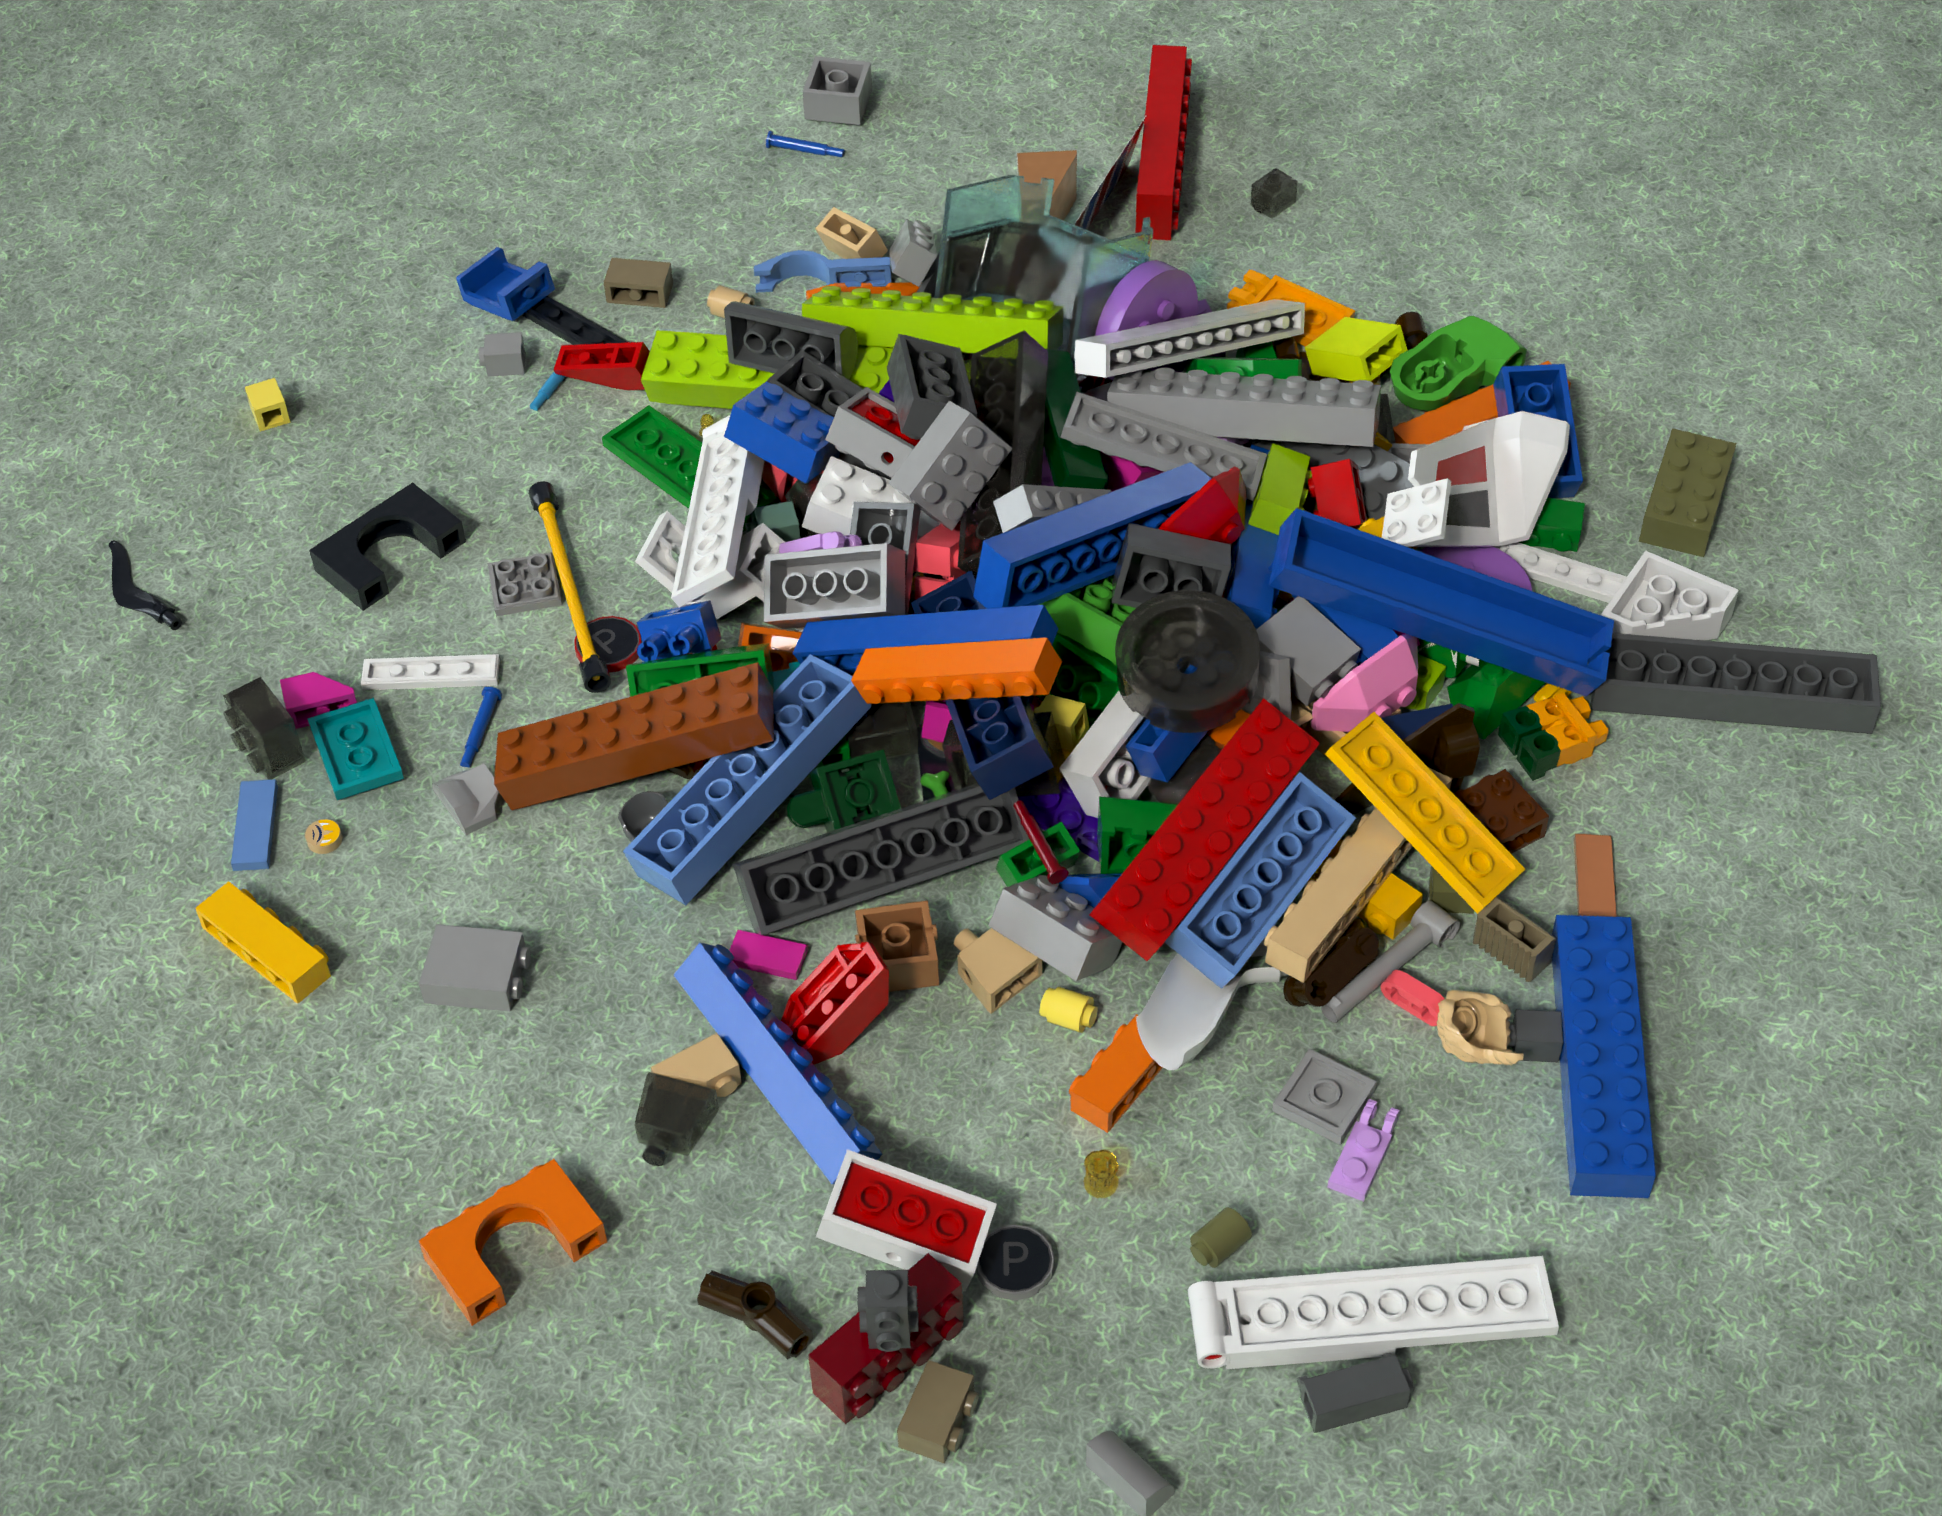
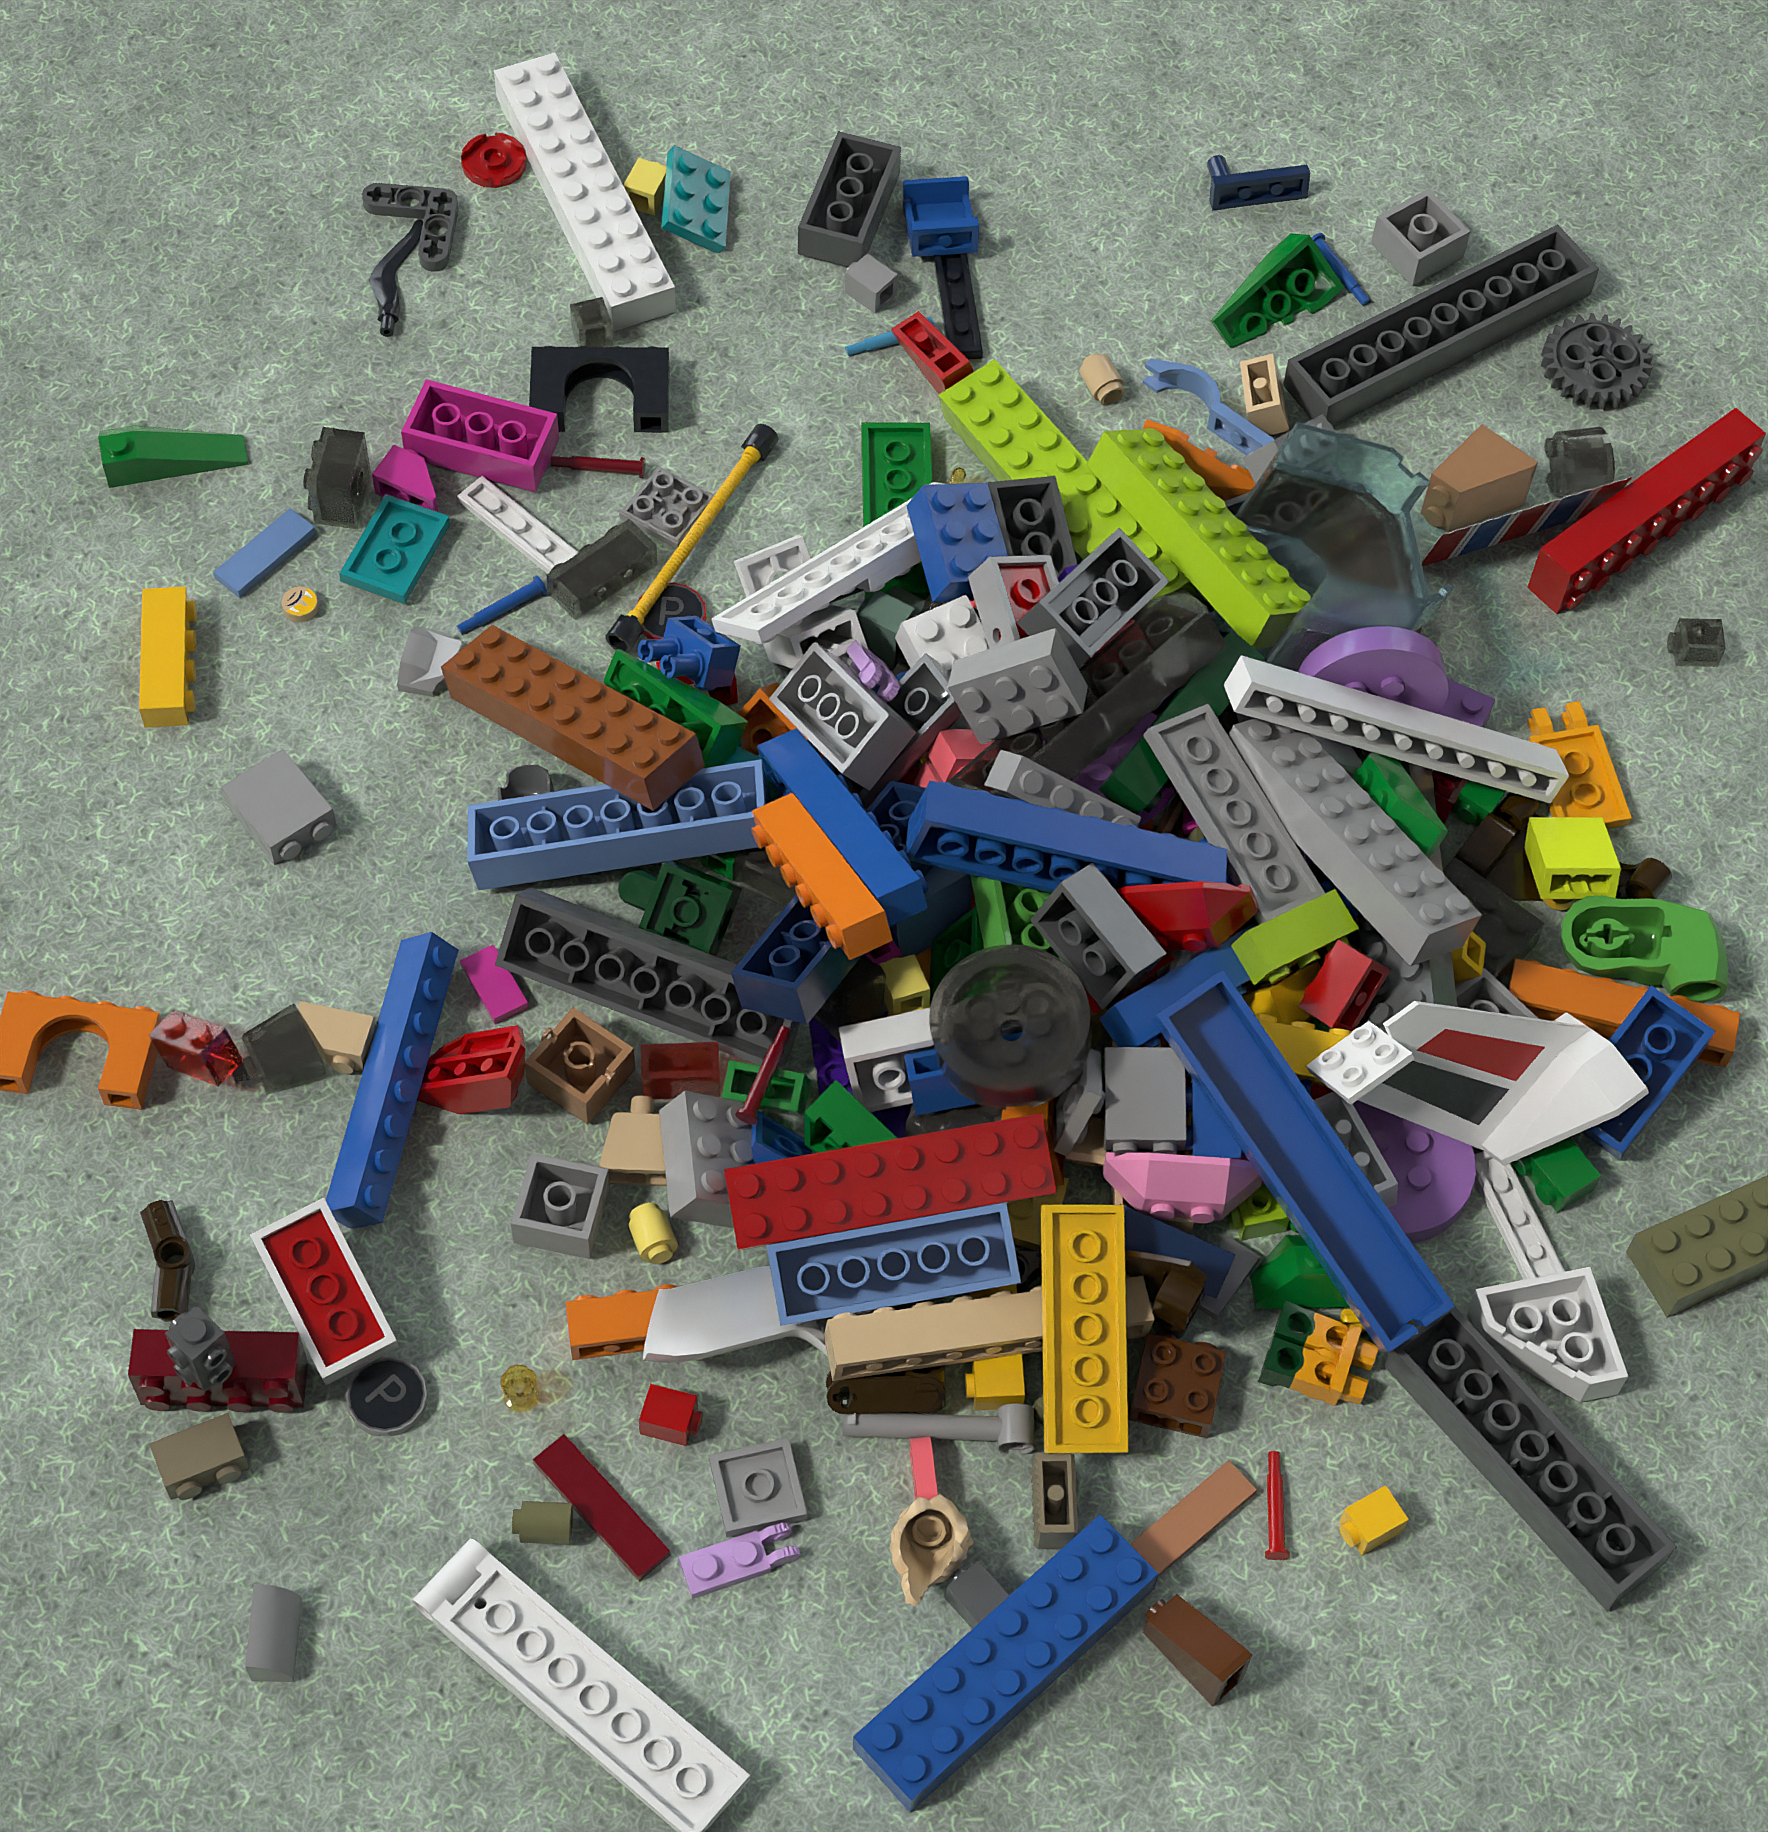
camera: 40 degrees right, 10 degrees up
(87, 825) = (157, 453): none -> green wedge
(110, 528) = (427, 209): none -> dark grey beam
(126, 475) = (500, 167): none -> red tile
(224, 436) = (585, 191): none -> white brick
(316, 386) = (696, 199): none -> teal plate
(332, 509) = (591, 323): none -> clear smoke brick
(338, 629) = (481, 435): none -> dark pink brick
(430, 314) = (849, 199): none -> dark grey brick
(443, 592) = (601, 464): none -> dark red piece
(526, 650) = (601, 568): none -> clear smoke brick
(611, 1157) = (196, 1047): none -> clear red brick
(638, 282) = (1049, 298): dark tan brick -> none
(693, 134) = (1255, 187): none -> dark blue piece
(771, 338) = (1055, 449): dark grey brick -> none
(781, 175) = (1283, 284): none -> green wedge
(912, 129) = (1440, 327): none -> dark grey brick
(967, 895) = (680, 1067): none -> clear red brick
(991, 1040) = (560, 1205): none -> light grey brick
(1025, 88) = (1596, 361): none -> dark grey gear
(1095, 139) = (1578, 461): none -> clear smoke brick
(1217, 1103) = (670, 1415): none -> red brick
(1250, 1198) = (601, 1507): none -> dark red tile
(1355, 1393) = (497, 1738): dark grey brick -> none
(1634, 838) = (1275, 1506): none -> red piece
(1696, 793) = (1372, 1521): none -> yellow brick
(1697, 944) = (1197, 1647): none -> reddish brown slope

